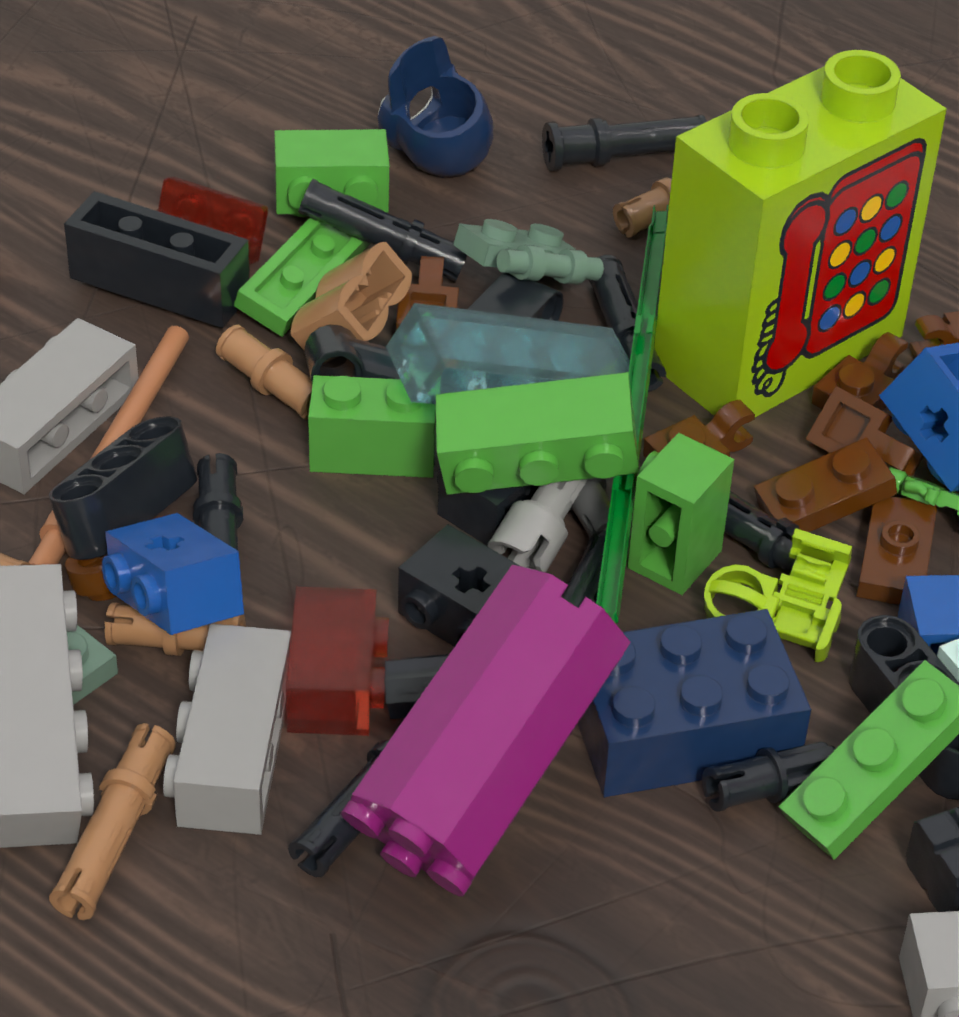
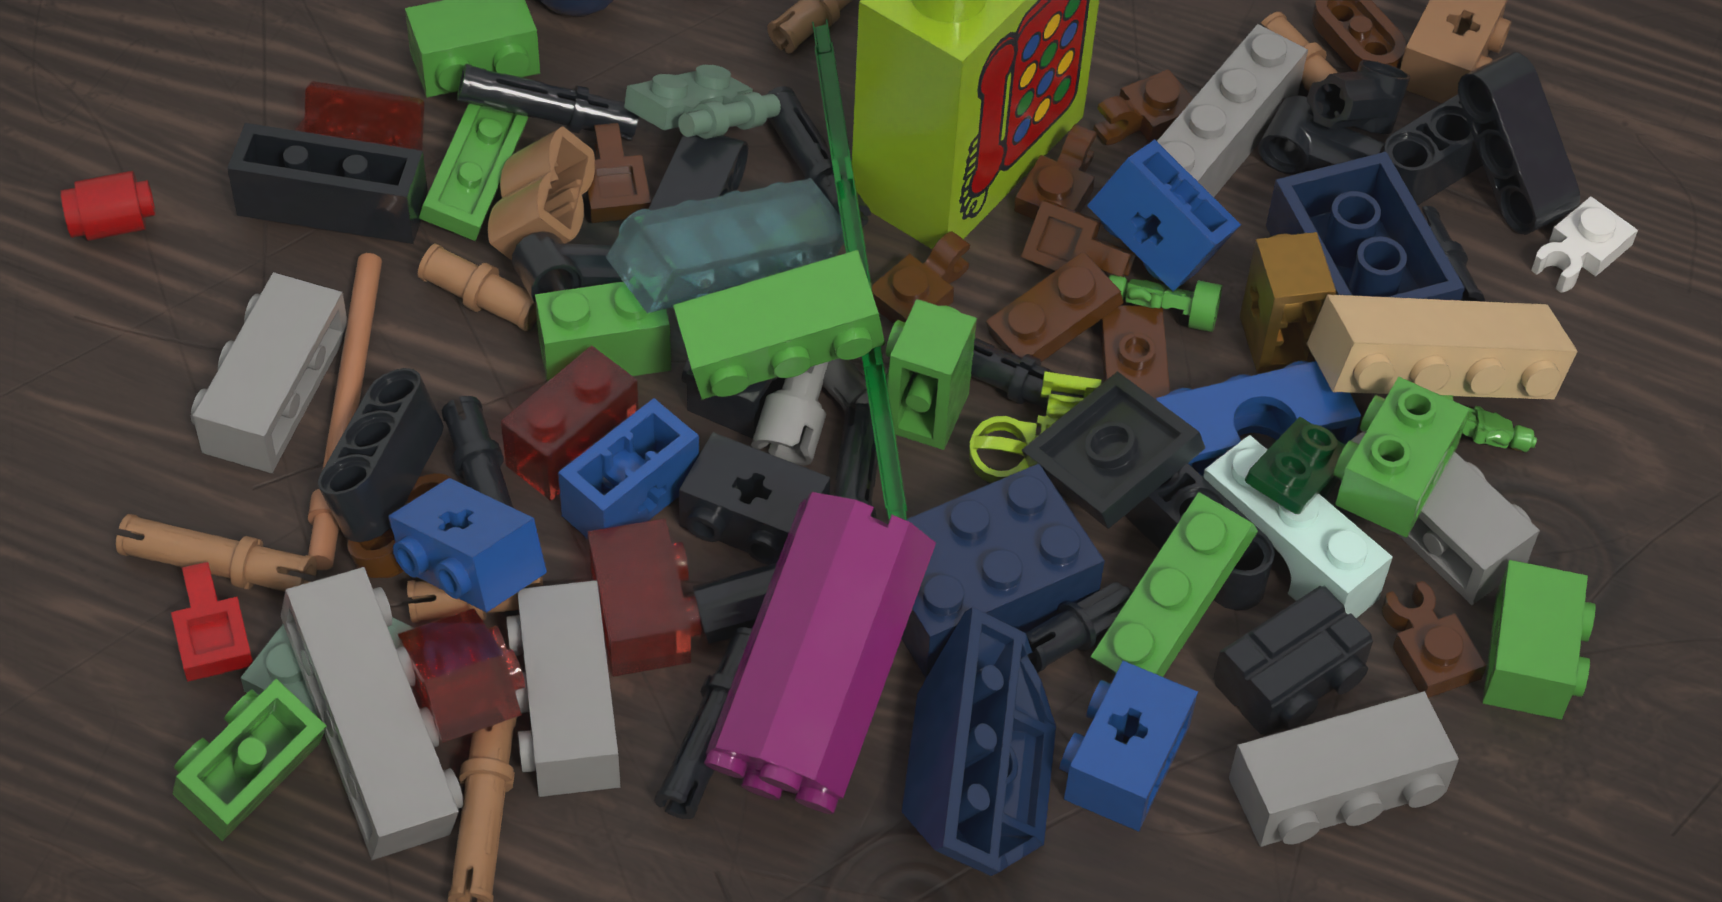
camera: 15 degrees left, 10 degrees up
(130, 687) = (463, 673): none -> clear red brick
(316, 496) = (567, 418): none -> clear red brick
(355, 541) = (629, 471): none -> blue brick
(639, 866) = (981, 748): none -> dark blue wedge
(795, 896) = (1118, 777): none -> blue brick
(848, 609) = (1114, 449): none -> black plate

